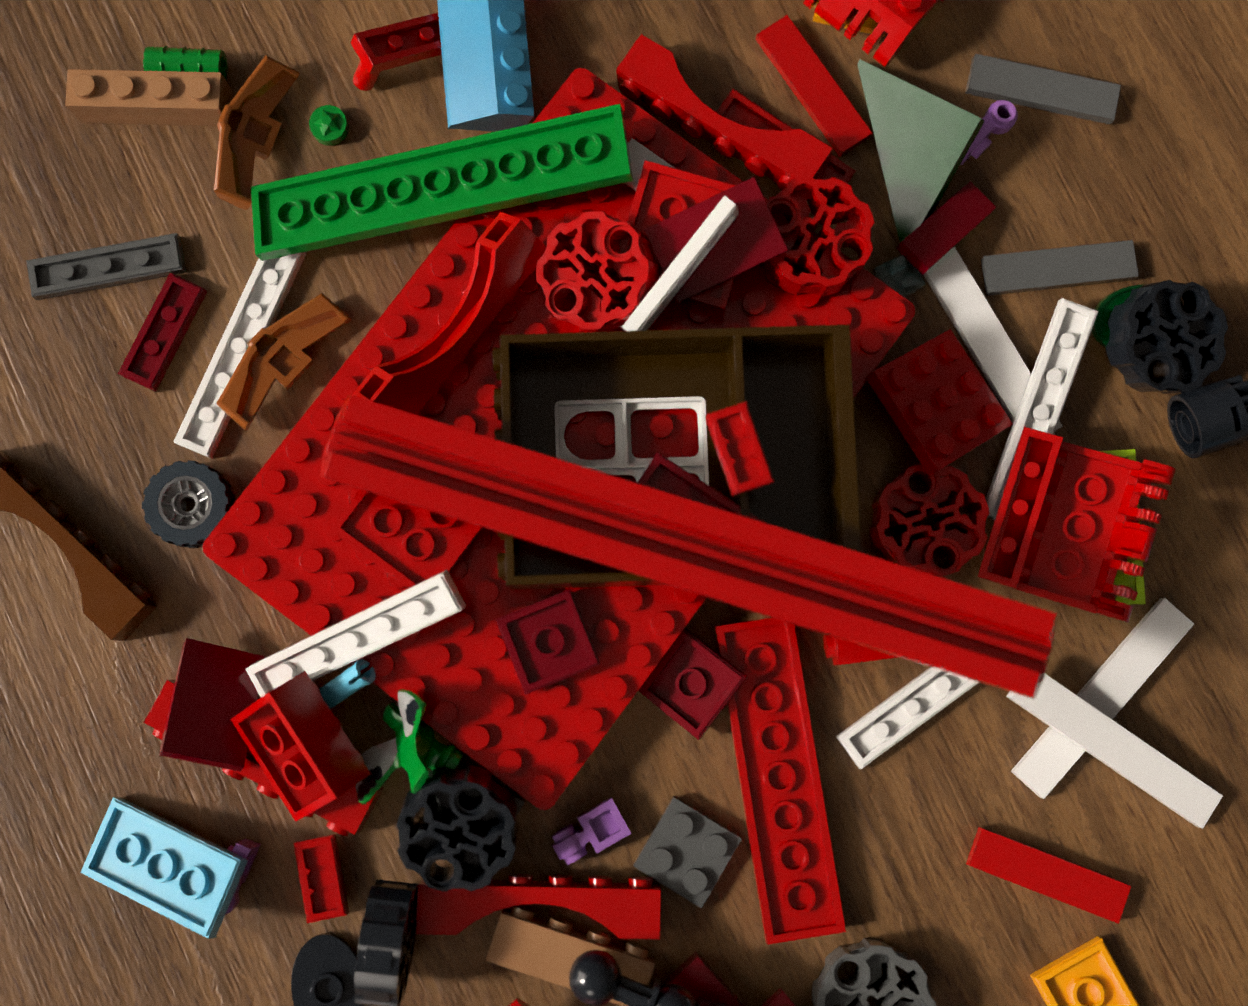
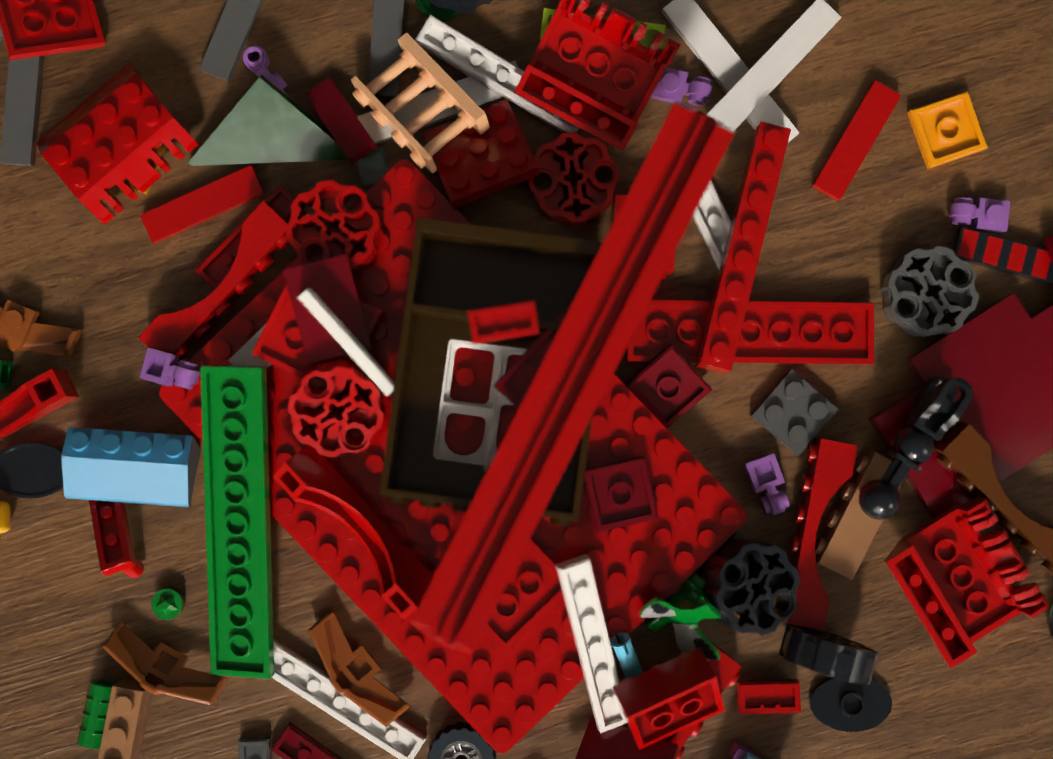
camera: 75 degrees left, 5 degrees up
(608, 72) = (163, 369): none -> medium lavender plate
(885, 748) = (743, 248): none -> red brick
(1003, 350) = (430, 76): none -> light nougat fence
(1072, 629) = (673, 87): none -> medium lavender plate

